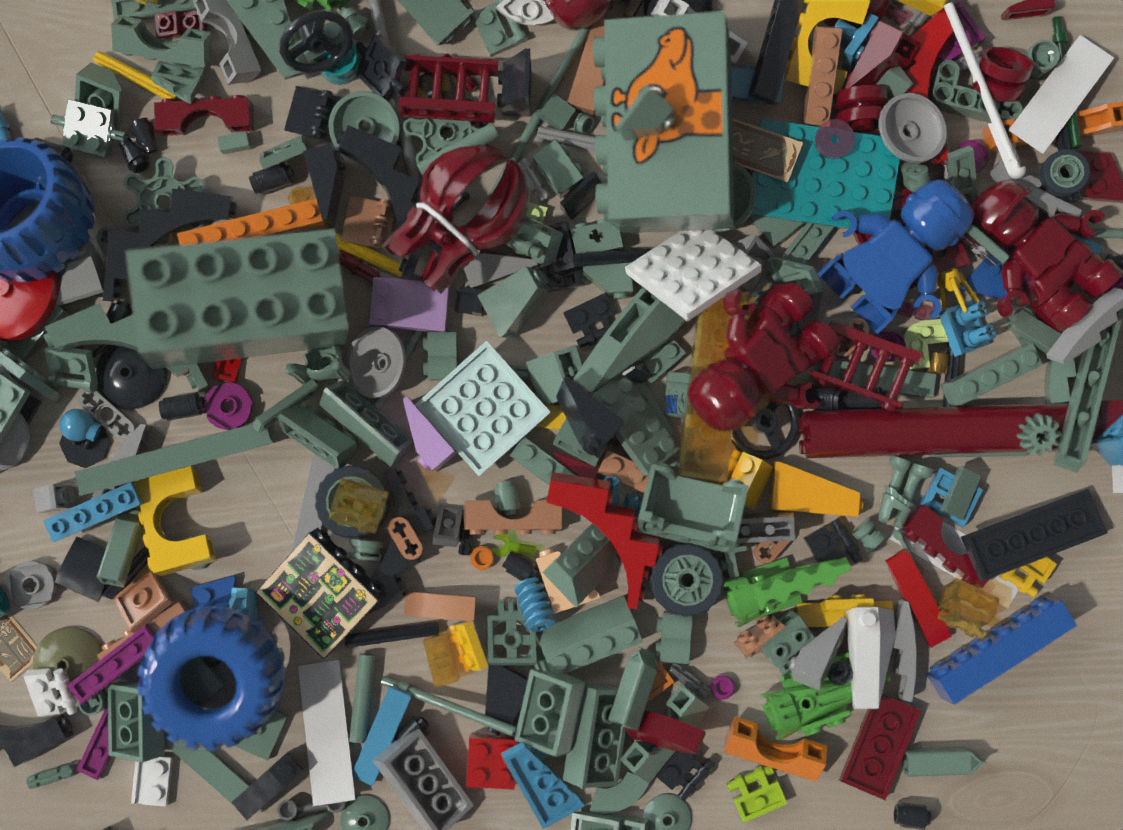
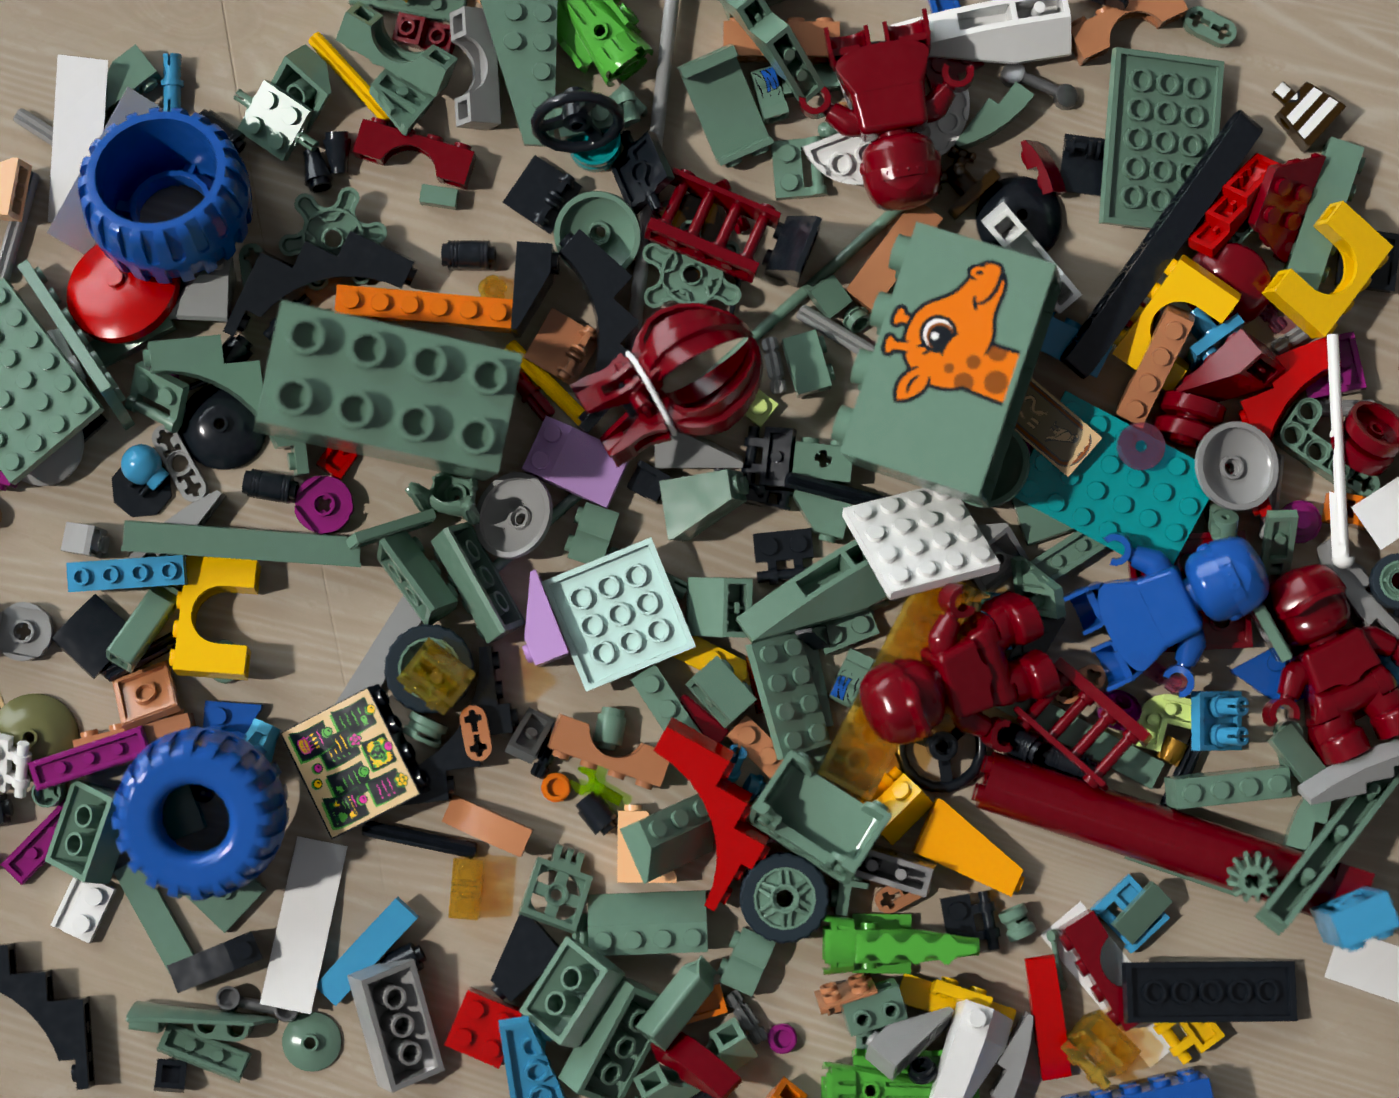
camera: 20 degrees right, 0 degrees up
(283, 152) = (493, 230): sand green plate -> none
(362, 698) = (359, 900): sand green piece -> none
(450, 706) = (458, 946): sand green bar -> none
(468, 646) = (503, 884): yellow plate -> none
(480, 137) = (717, 297): sand green piece -> none
(533, 605) = (597, 864): dark azure piece -> none
(537, 241) = (752, 441): sand green brick -> none
(581, 196) = (823, 404): black slope -> none
(589, 419) = (737, 674): black slope -> none
(646, 116) = (922, 353): sand green slope -> none
(892, 498) = (1060, 890): sand green piece -> none
(895, 81) = (1238, 403): sand green slope -> none
(952, 281) = (1221, 659): yellow plant -> none

